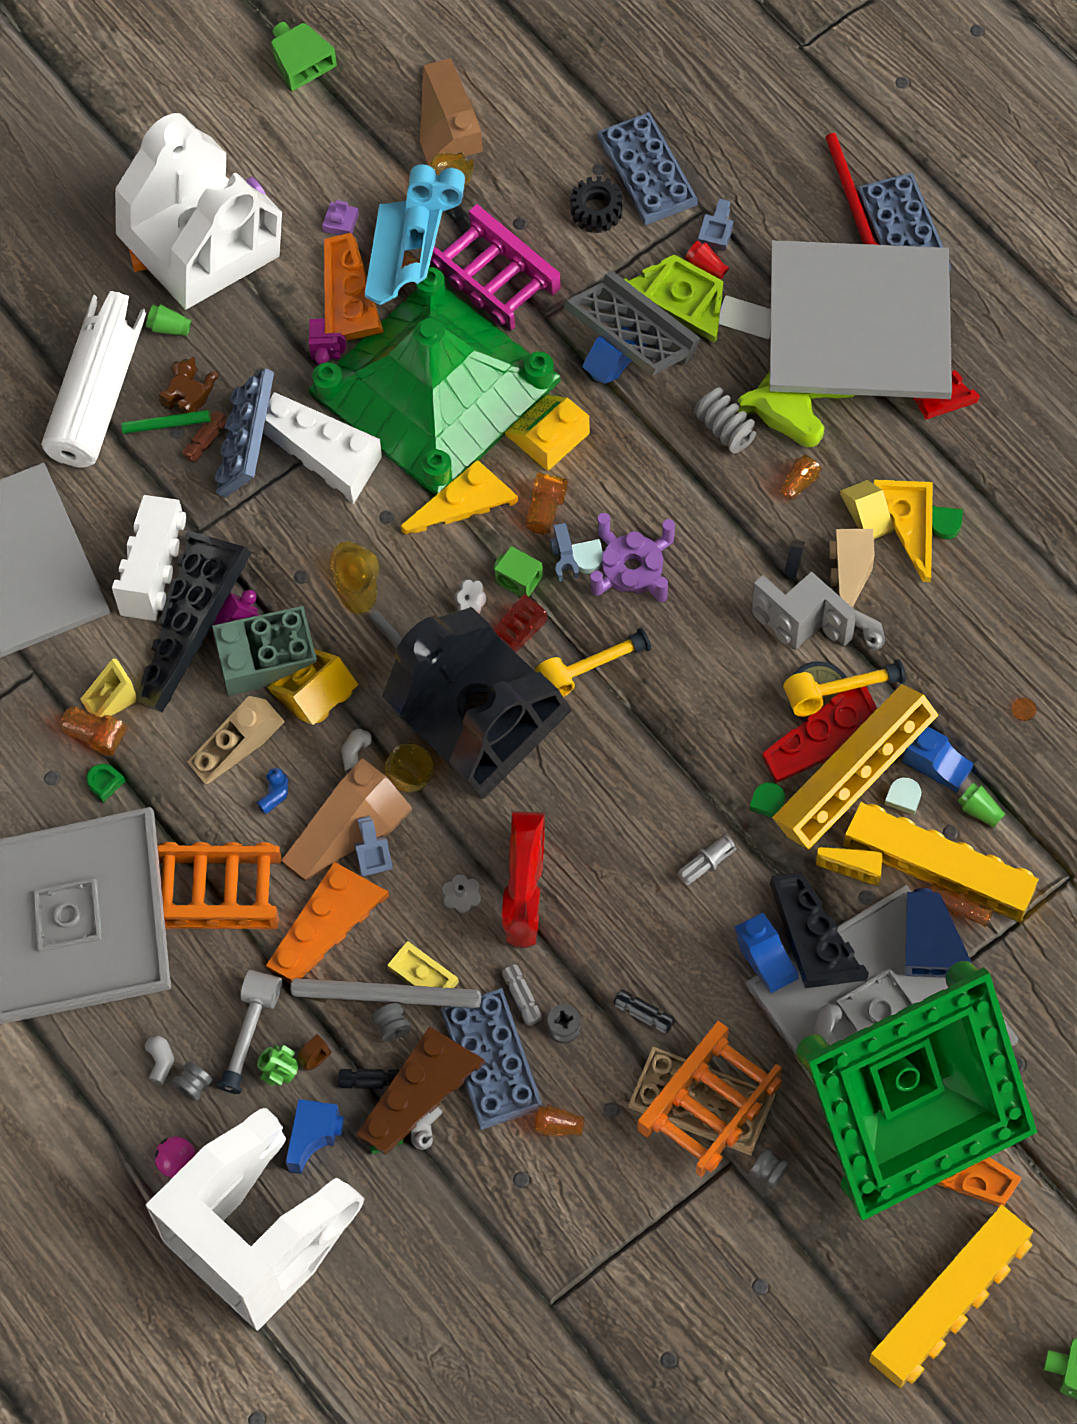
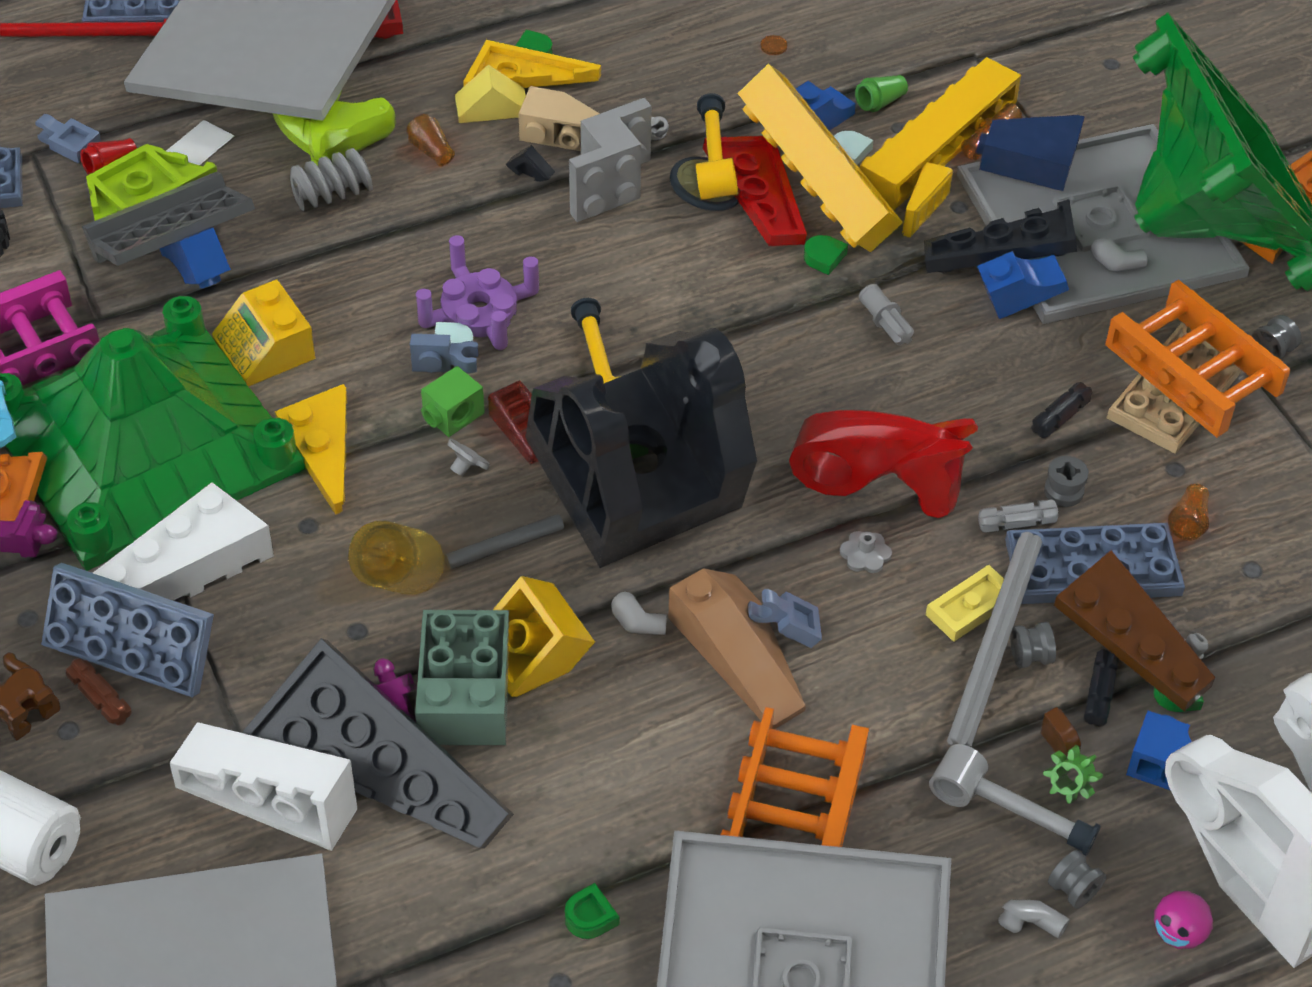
camera: 80 degrees left, 15 degrees down
(101, 733) = (517, 895): clear orange piece -> none
(110, 691) = (459, 870): light yellow slope -> none
(166, 421) = (54, 728): green bar -> none
(236, 738) = (583, 738): tan slope -> none
(276, 790) = (669, 710): blue arm -> none
(325, 920) = (868, 691): orange wing -> none
(409, 767) = (687, 553): clear yellow hair -> none
(547, 495) = (357, 354): clear orange piece -> none

